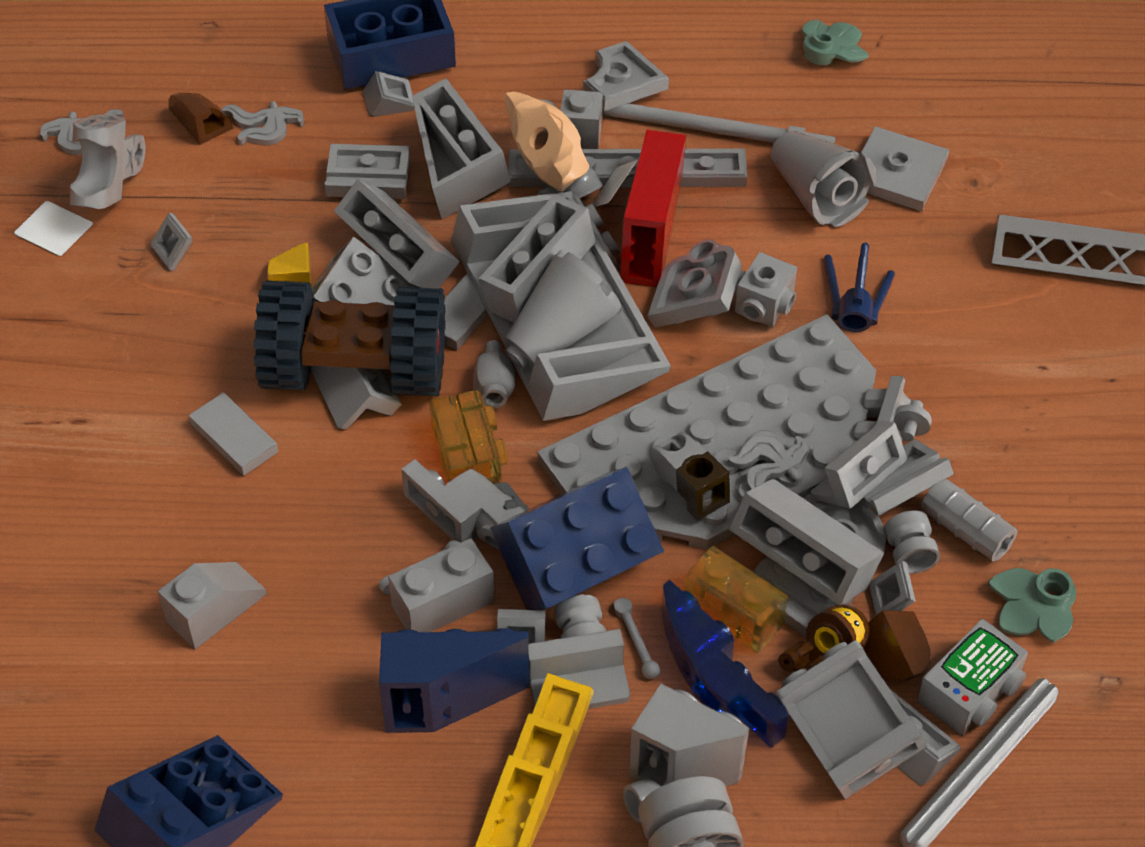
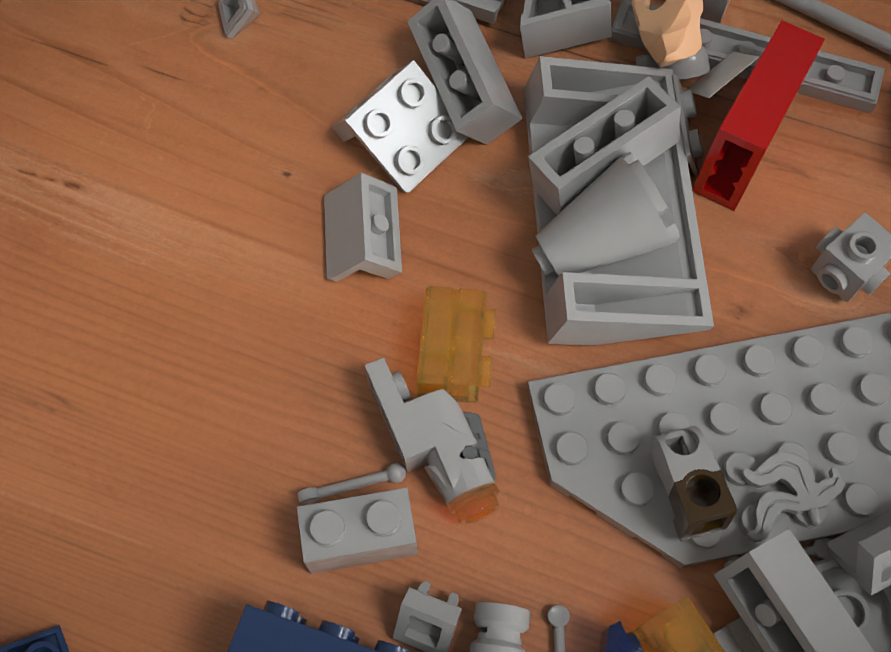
camera: 20 degrees right, 15 degrees up
(208, 599) = (109, 452): light grey slope -> none
(233, 434) = (215, 252): light grey tile -> none
(291, 265) = (344, 76): yellow slope -> none
(305, 333) = (318, 164): black plate -> none
(463, 313) = (499, 180): light grey tile -> none
(494, 375) = (512, 269): light grey plant -> none
(577, 540) = (529, 532): dark blue brick -> none
(696, 284) = (777, 227): light grey plate -> none

